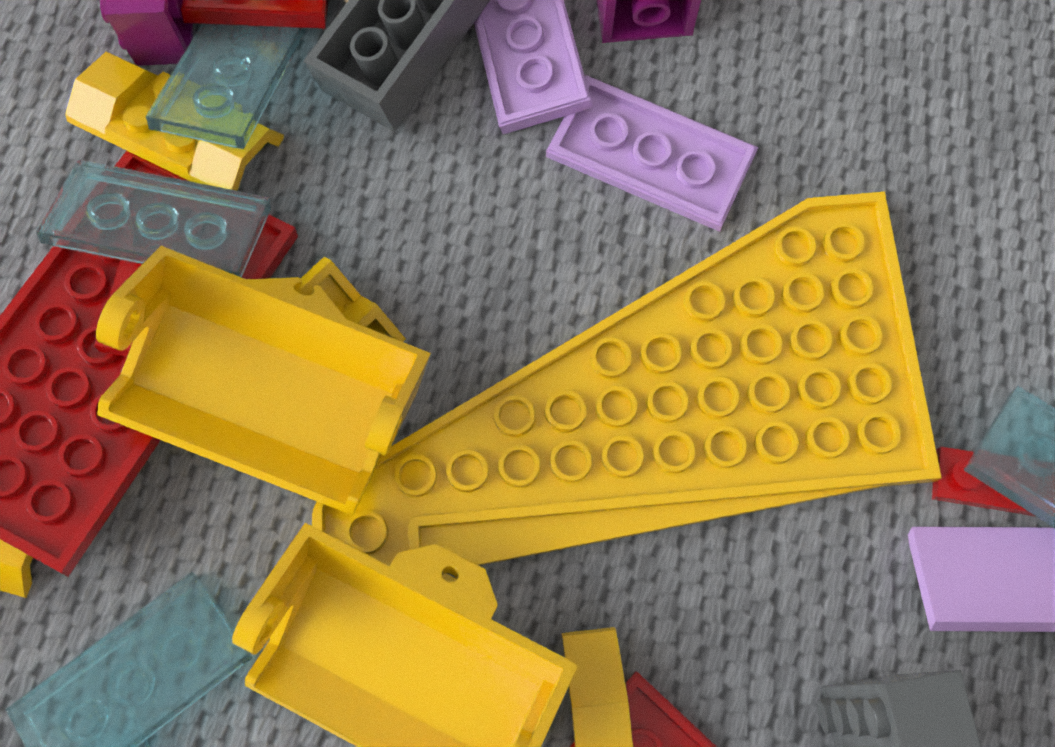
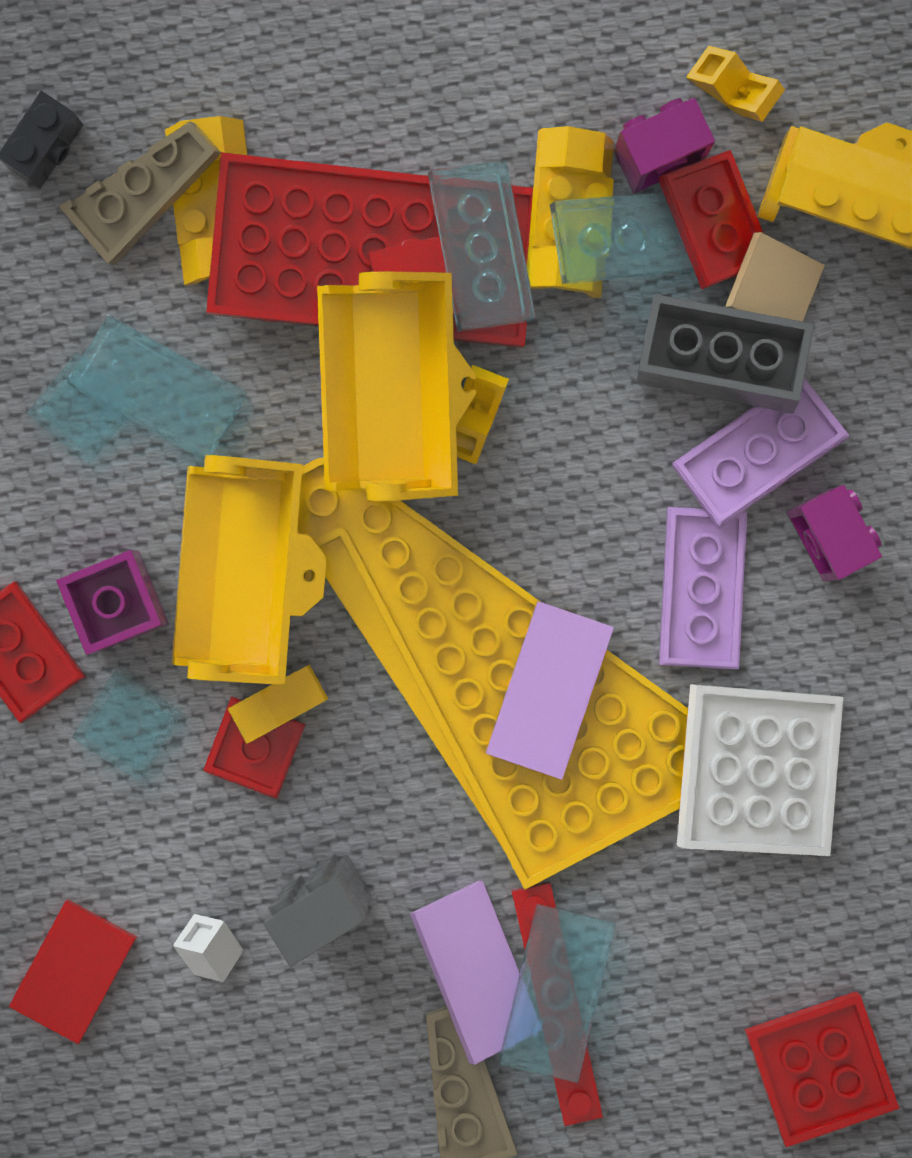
camera: 70 degrees right, 15 degrees up
(708, 352) = (549, 690): none -> lavender tile
(887, 163) = (759, 771): none -> white plate

